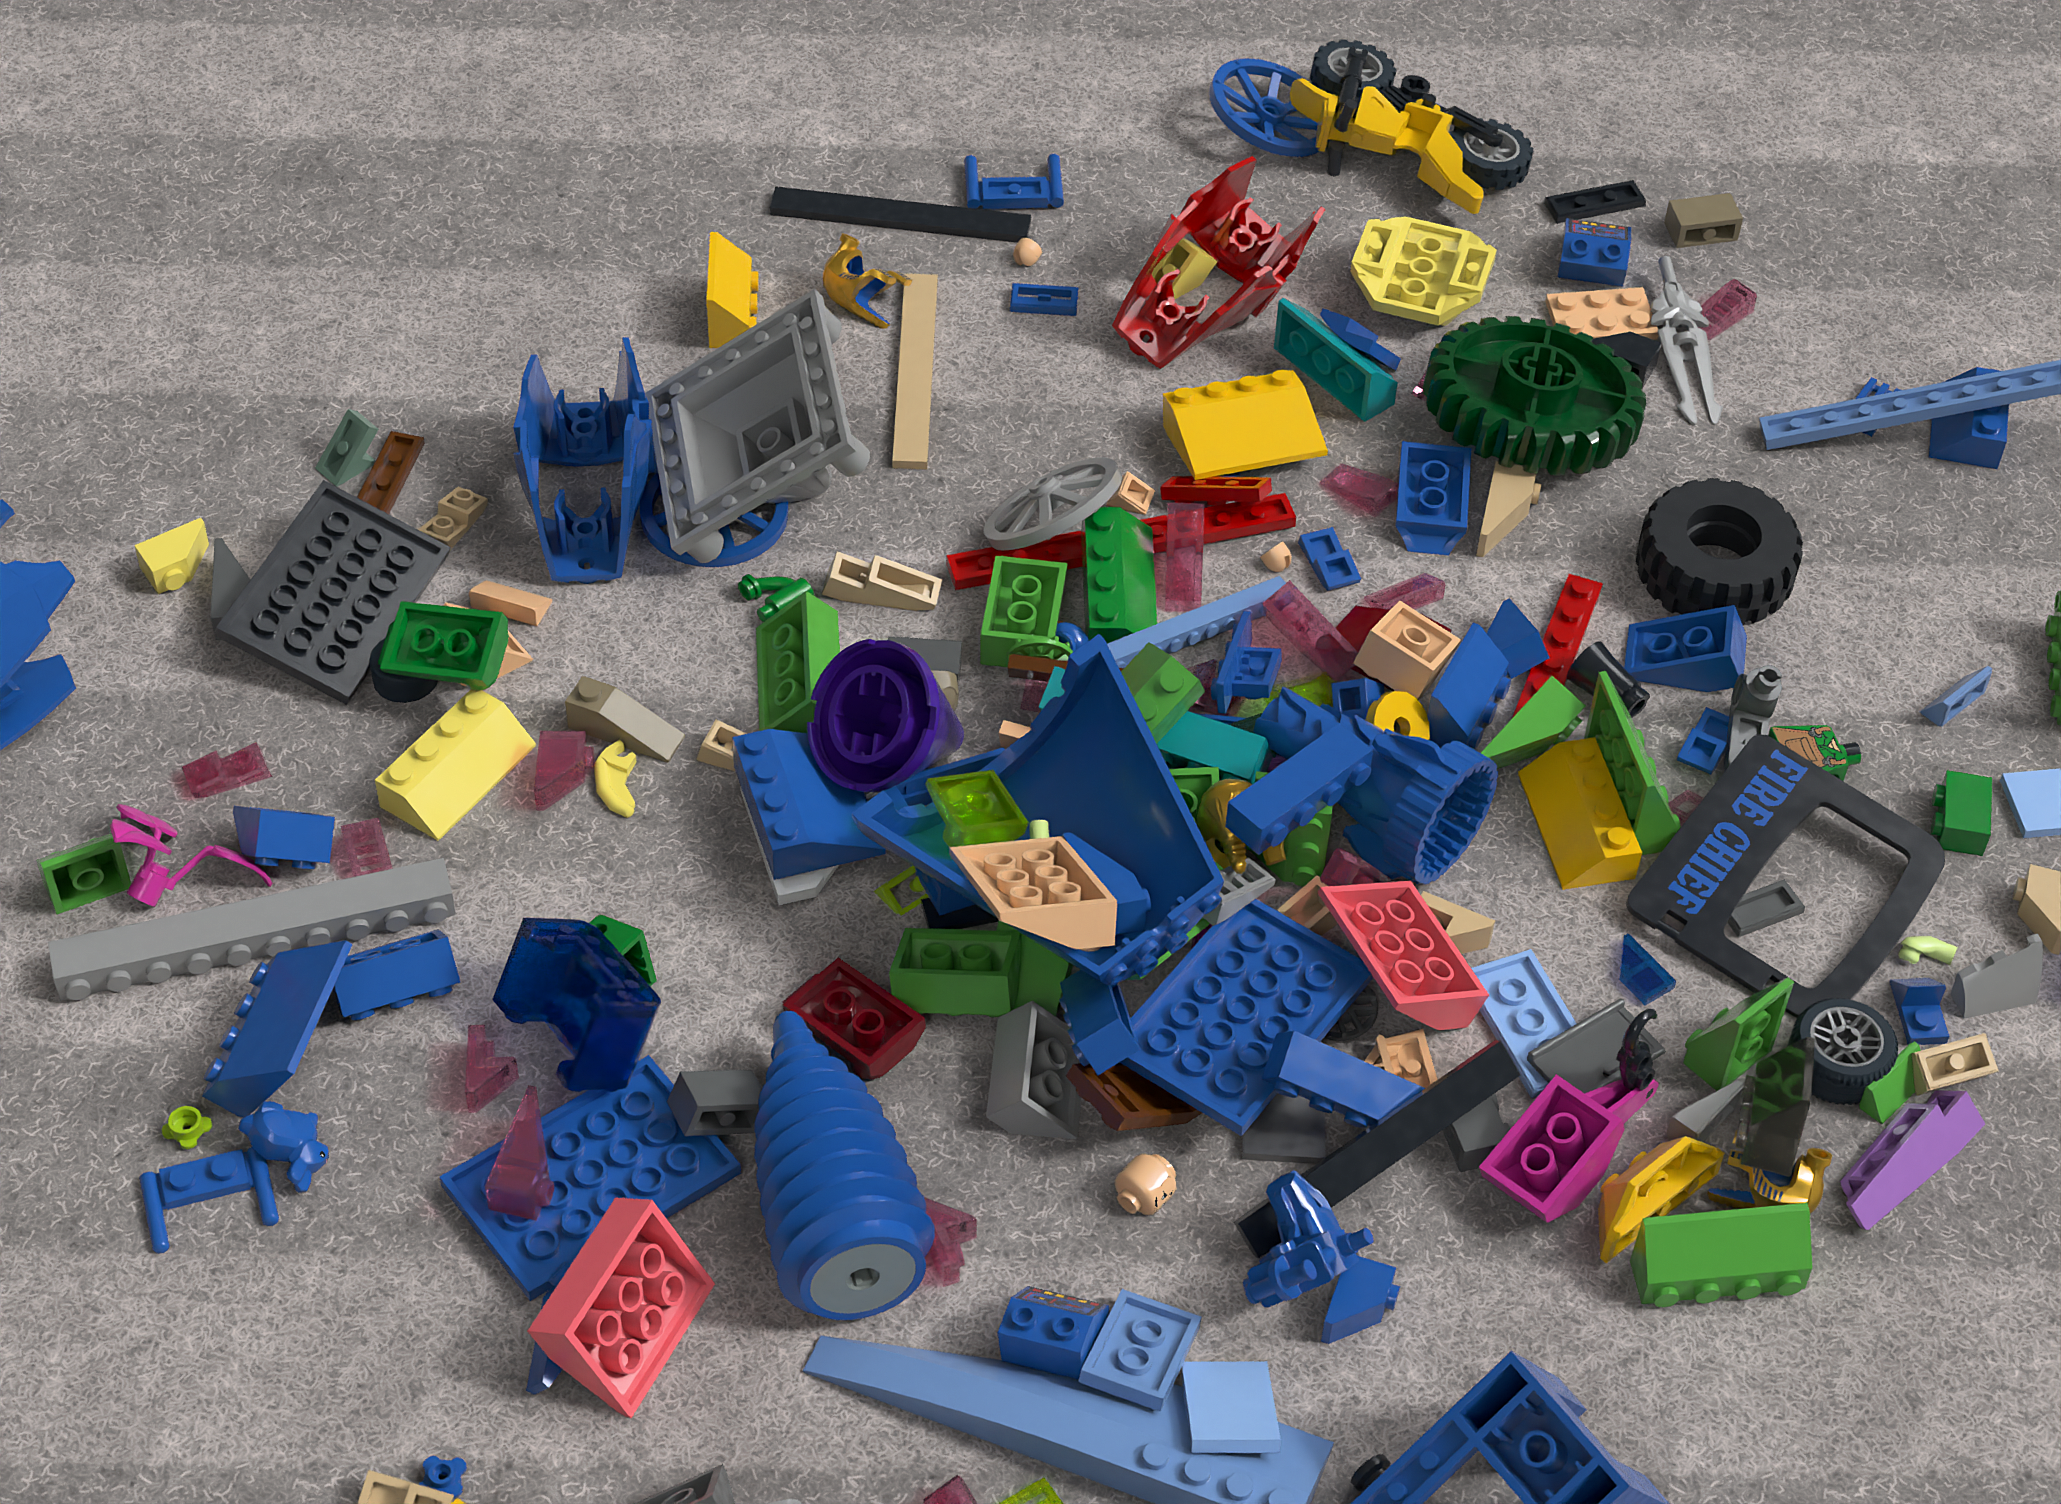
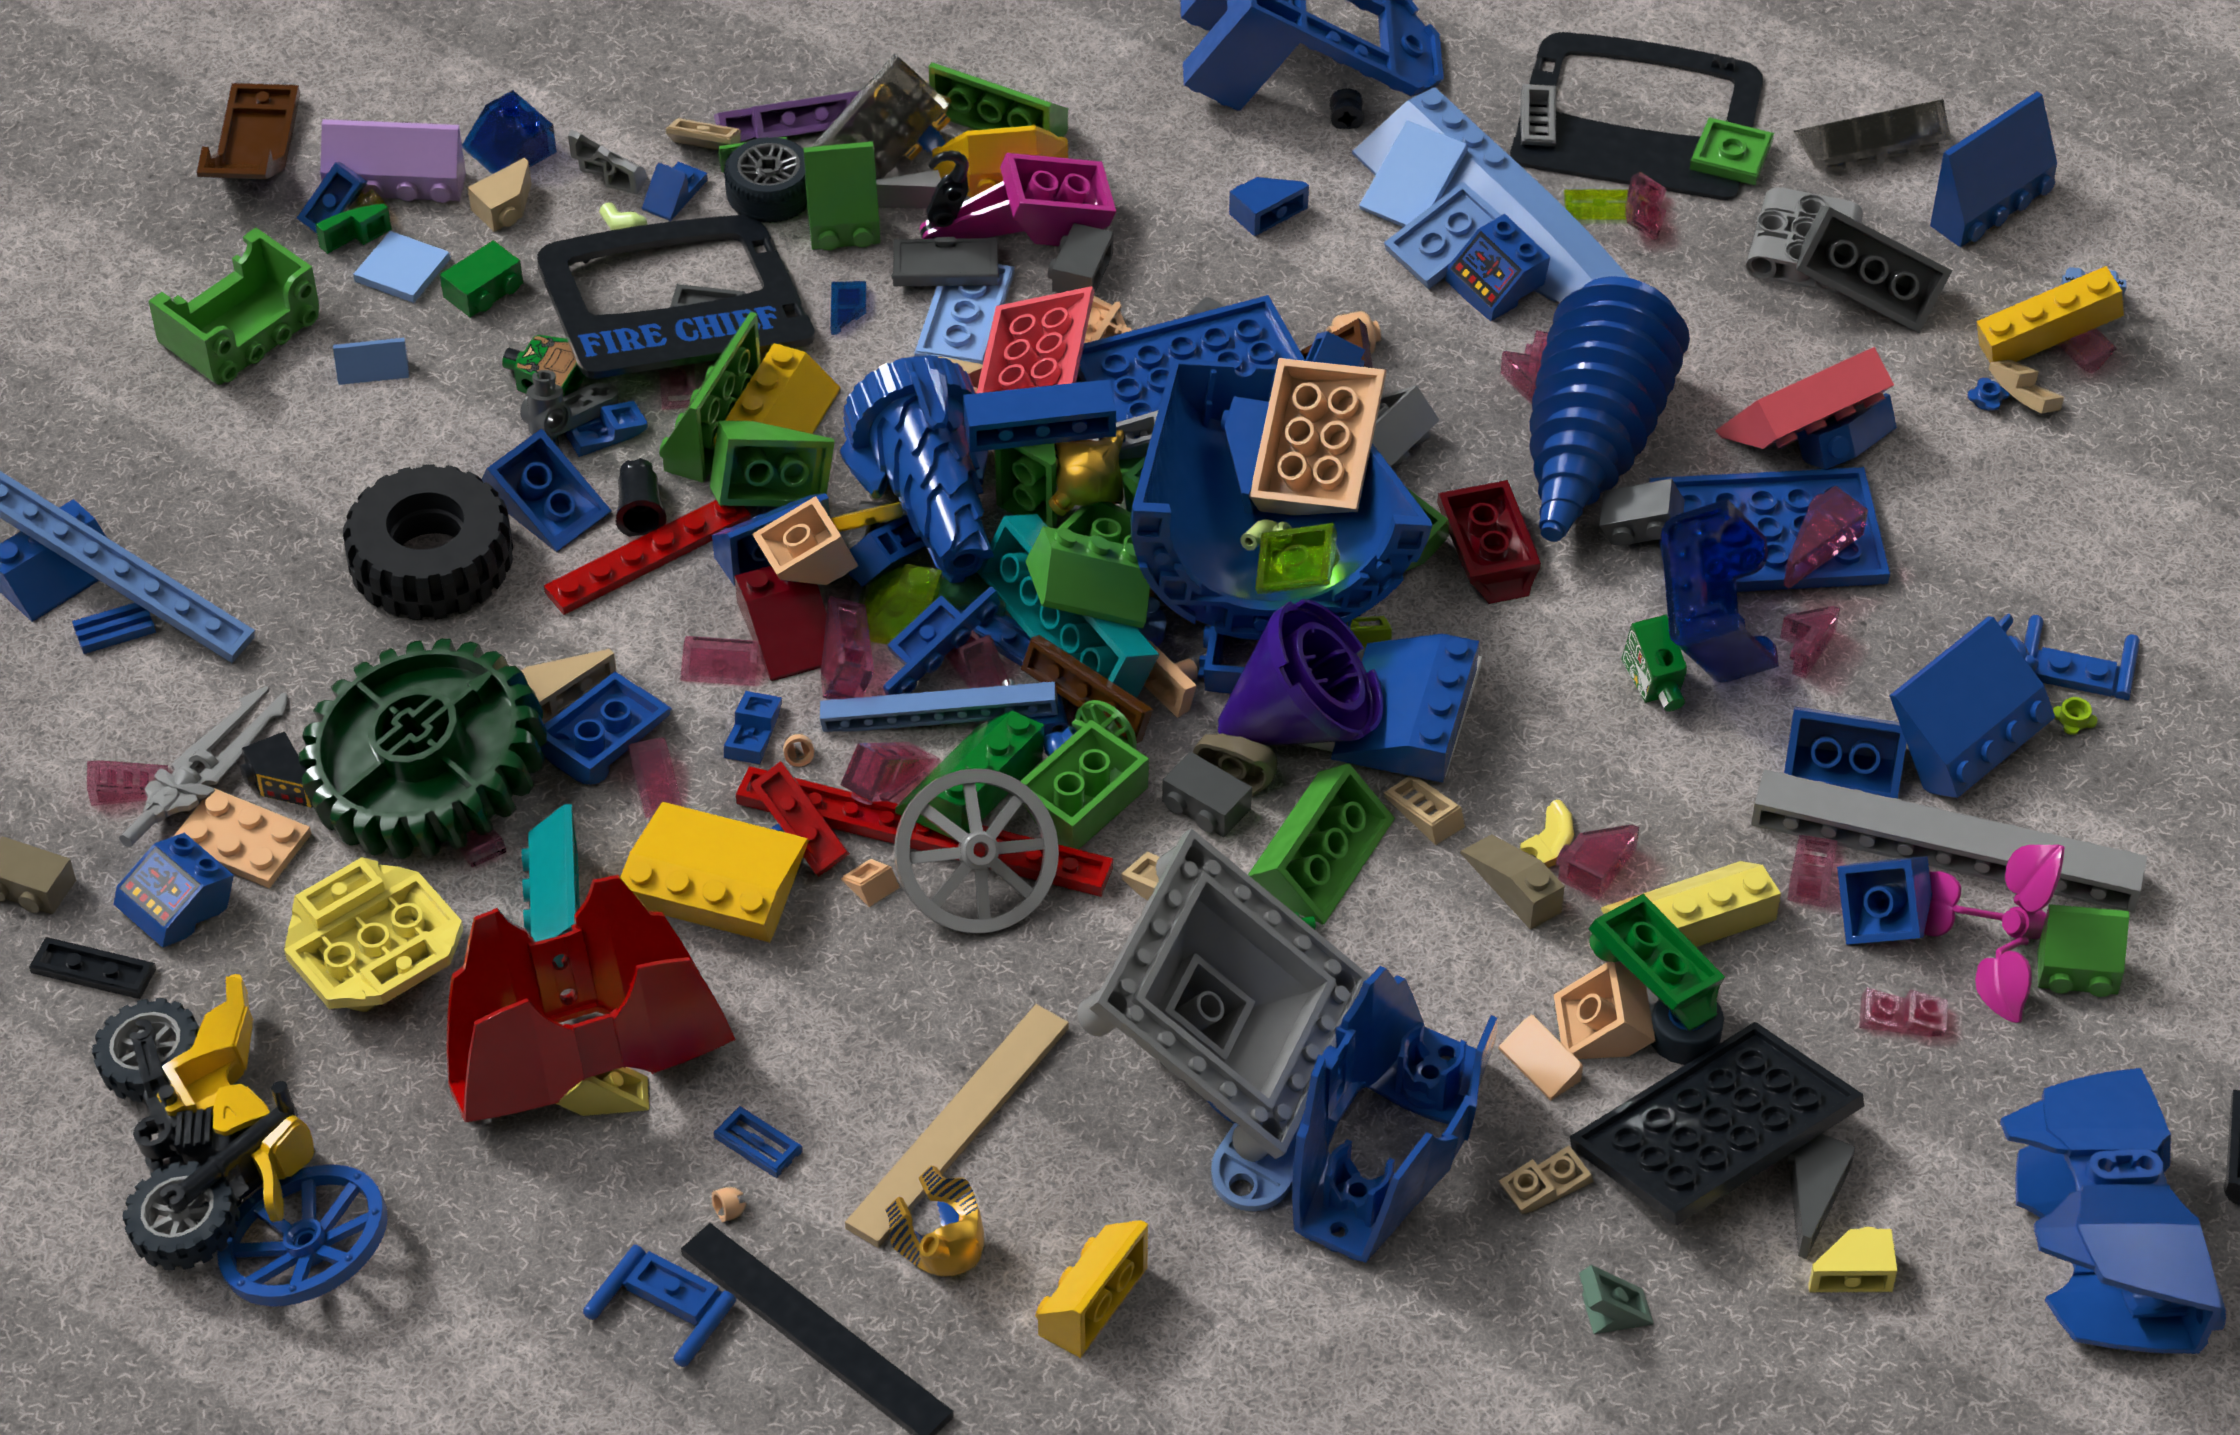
camera: 145 degrees left, 0 degrees up
(391, 470) = (1605, 1249): reddish brown tile -> none
(1311, 1244) = (1297, 208): blue piece -> none
(1334, 1080) = (1166, 287): blue brick -> none
(1360, 338) = (517, 888): blue slope -> none
(1391, 1138) = (1174, 257): black tile -> none
(1516, 639) = (681, 561): blue slope -> none

